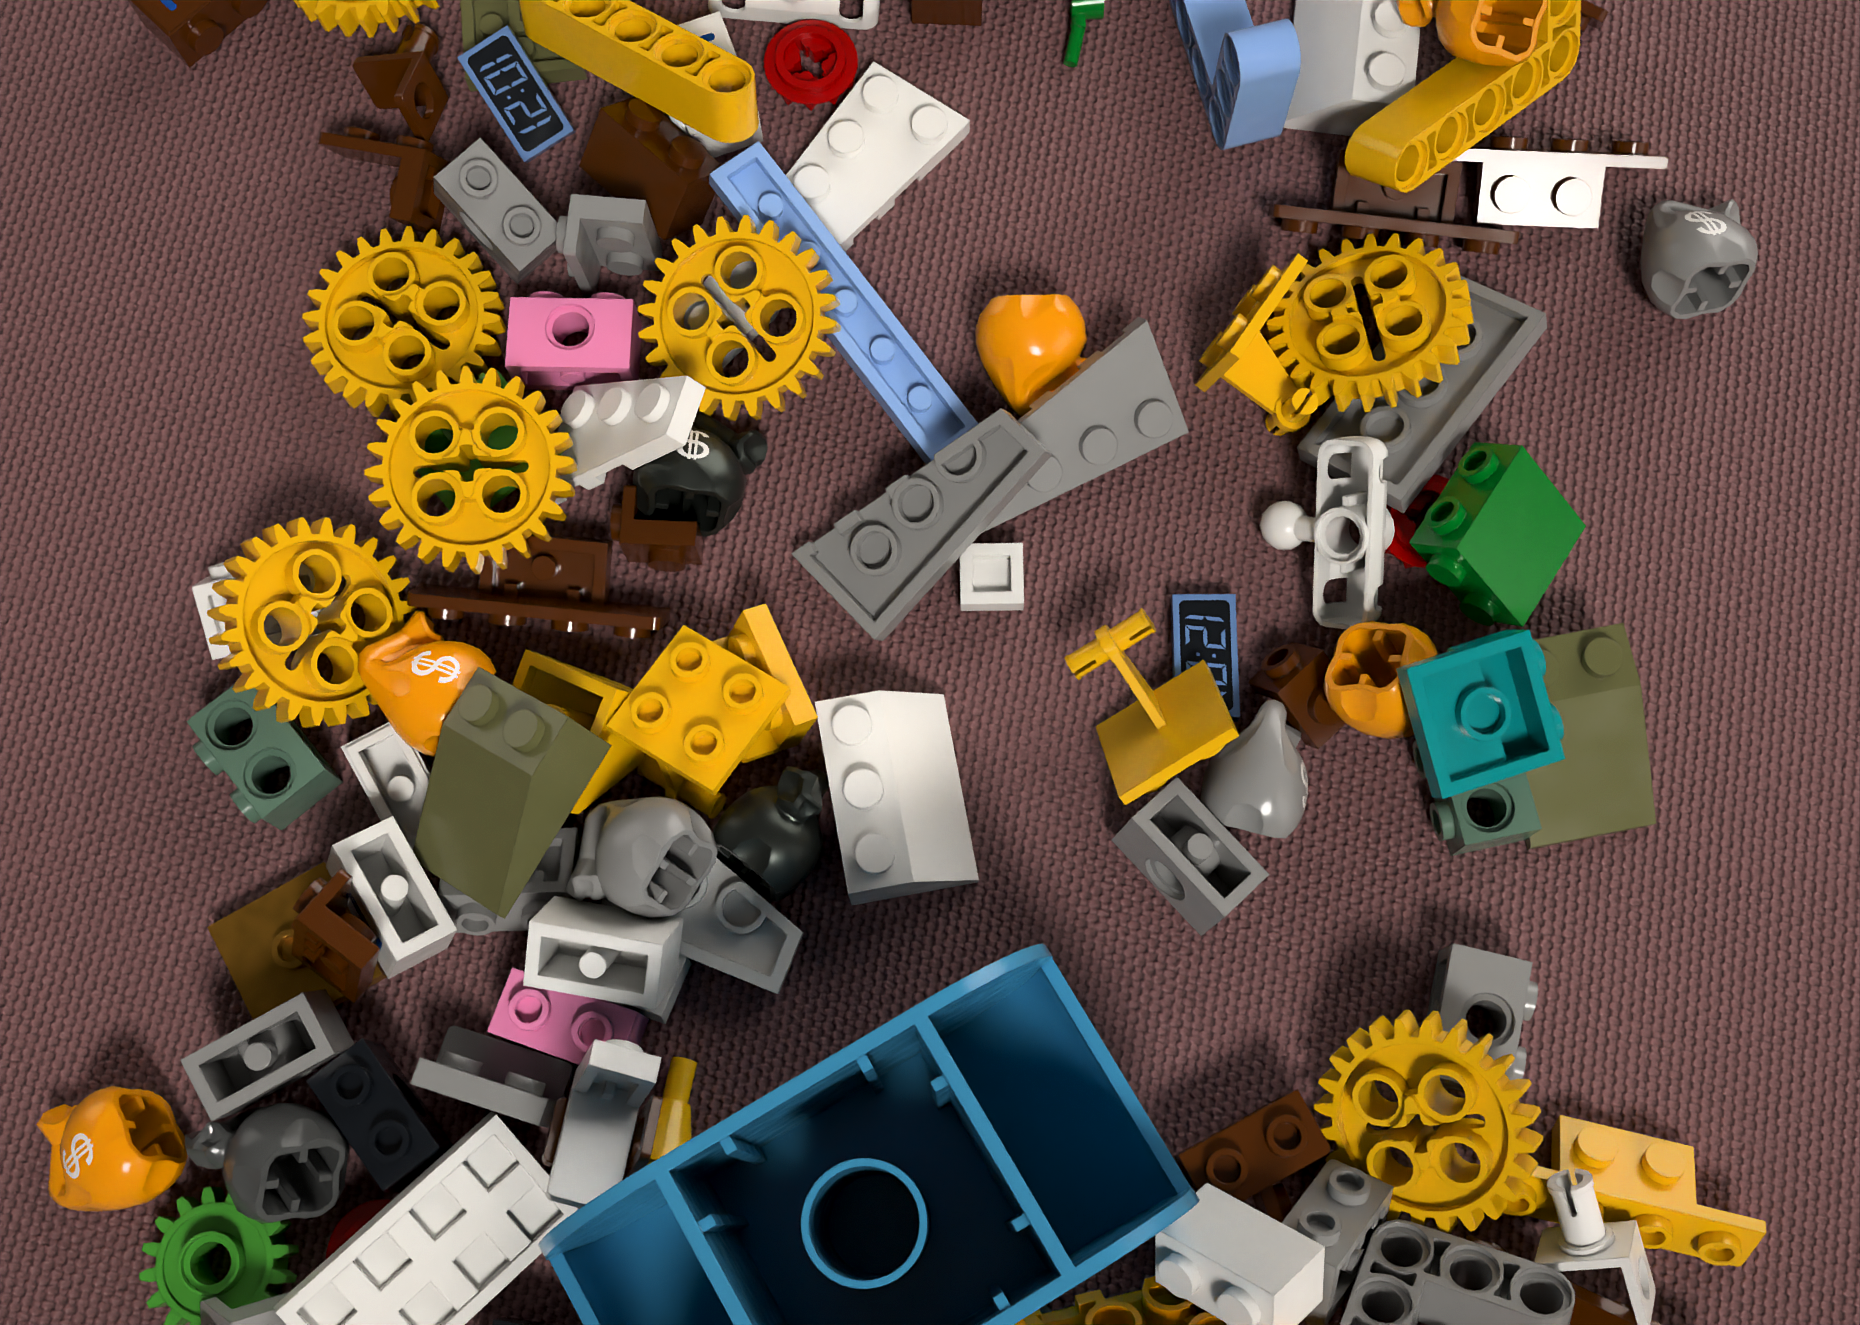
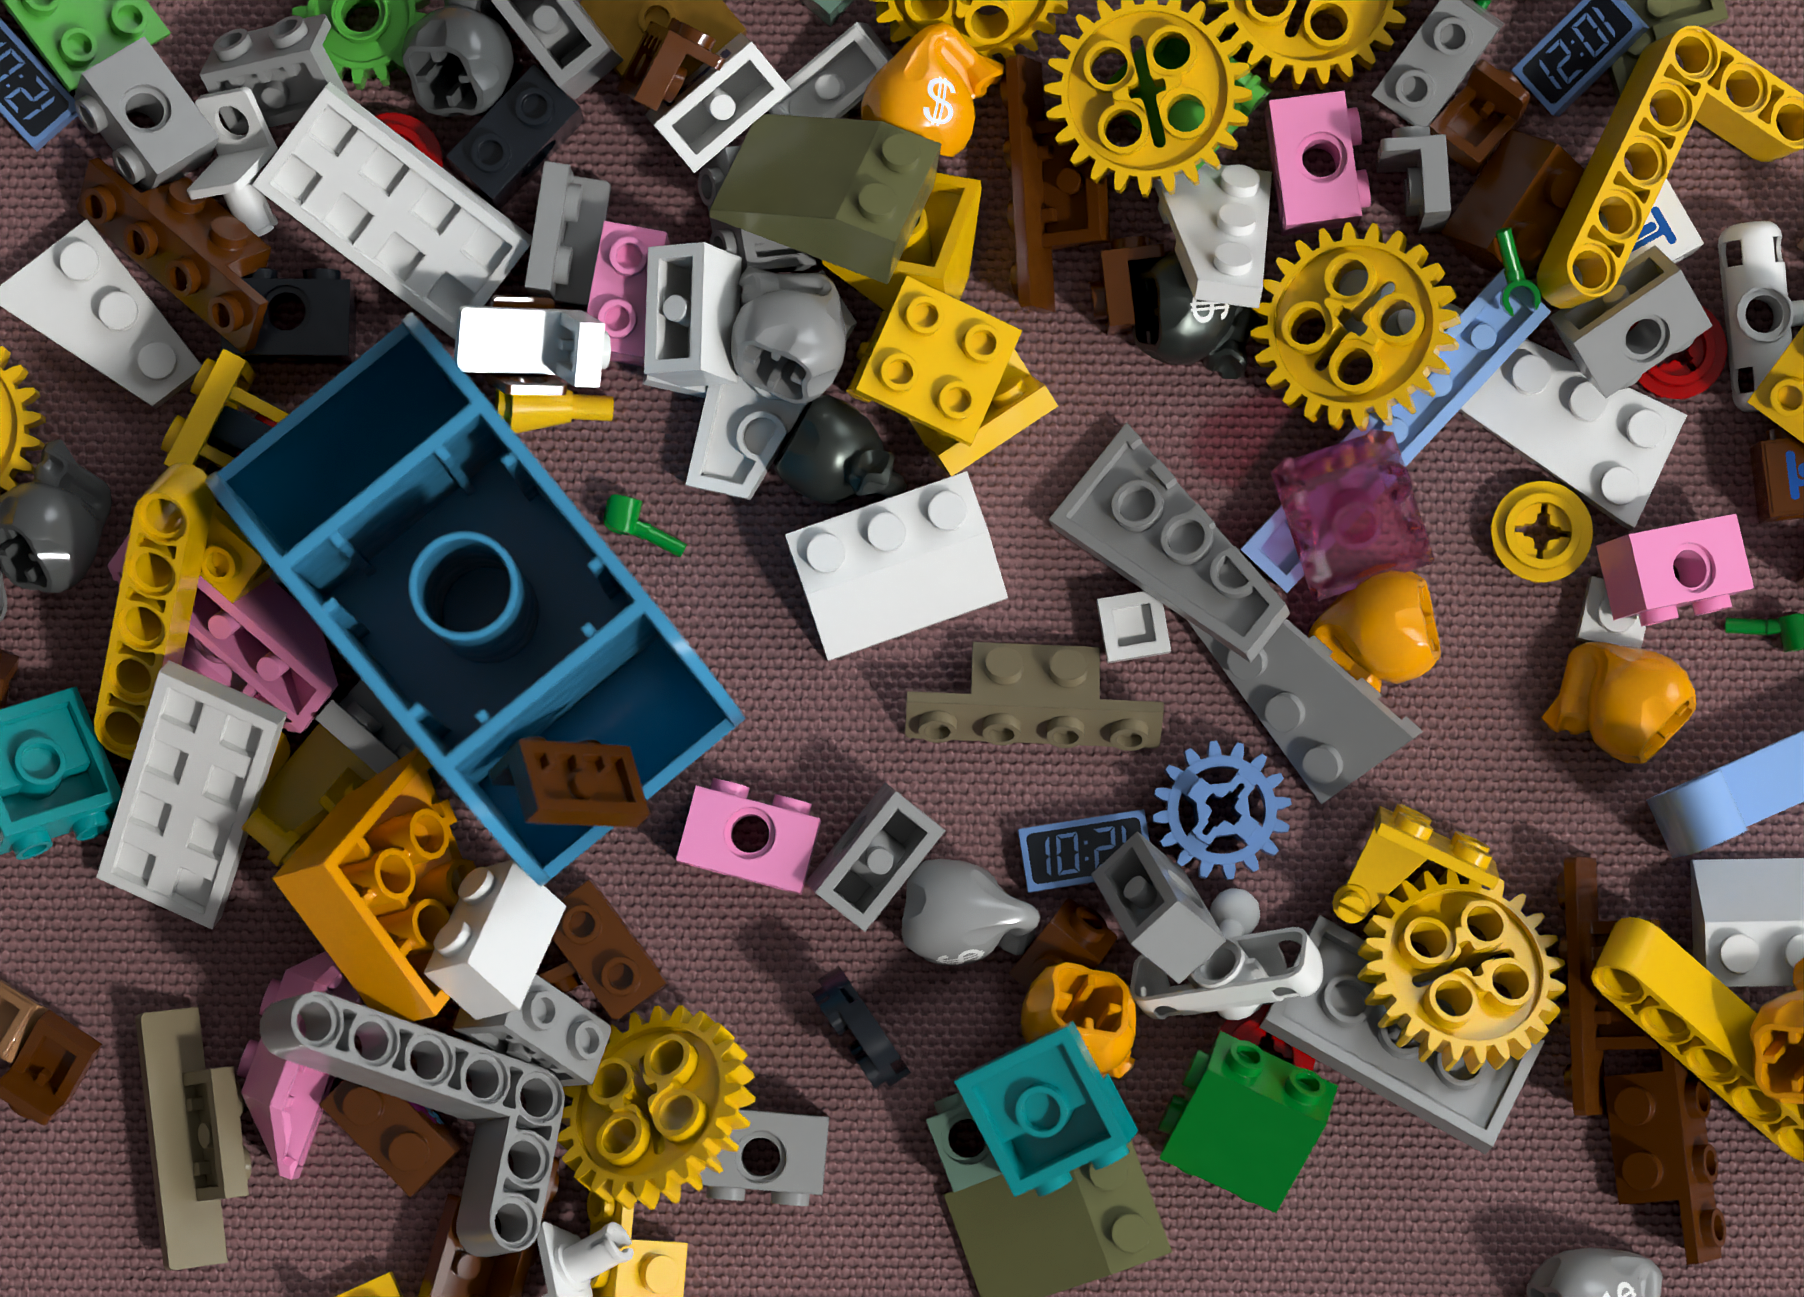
camera: 75 degrees right, 10 degrees up
(553, 176) = (1481, 115): none -> reddish brown bracket
(722, 158) = (1513, 271): none -> green hand
(793, 82) = (1648, 292): none -> light grey brick
(796, 1061) = (622, 518): none -> green hand
(917, 348) = (1352, 513): none -> clear pink slope
(944, 182) = (1563, 512): none -> yellow gear
(1017, 83) = (1642, 575): none -> bright pink brick
(1036, 692) = (1034, 698): none -> dark tan bracket
(1046, 153) = (1597, 622): none -> white plate
(1093, 1142) = (573, 782): none -> reddish brown bracket
(1128, 149) = (1624, 697): none -> light orange piece
(1166, 725) = (998, 814): yellow plate -> none
(1179, 955) = (710, 846): none -> bright pink brick
(1198, 541) = (1244, 830): none -> medium blue gear
(1280, 583) = (1158, 908): none -> light grey brick
(1366, 897) = (848, 1011): none -> black plate

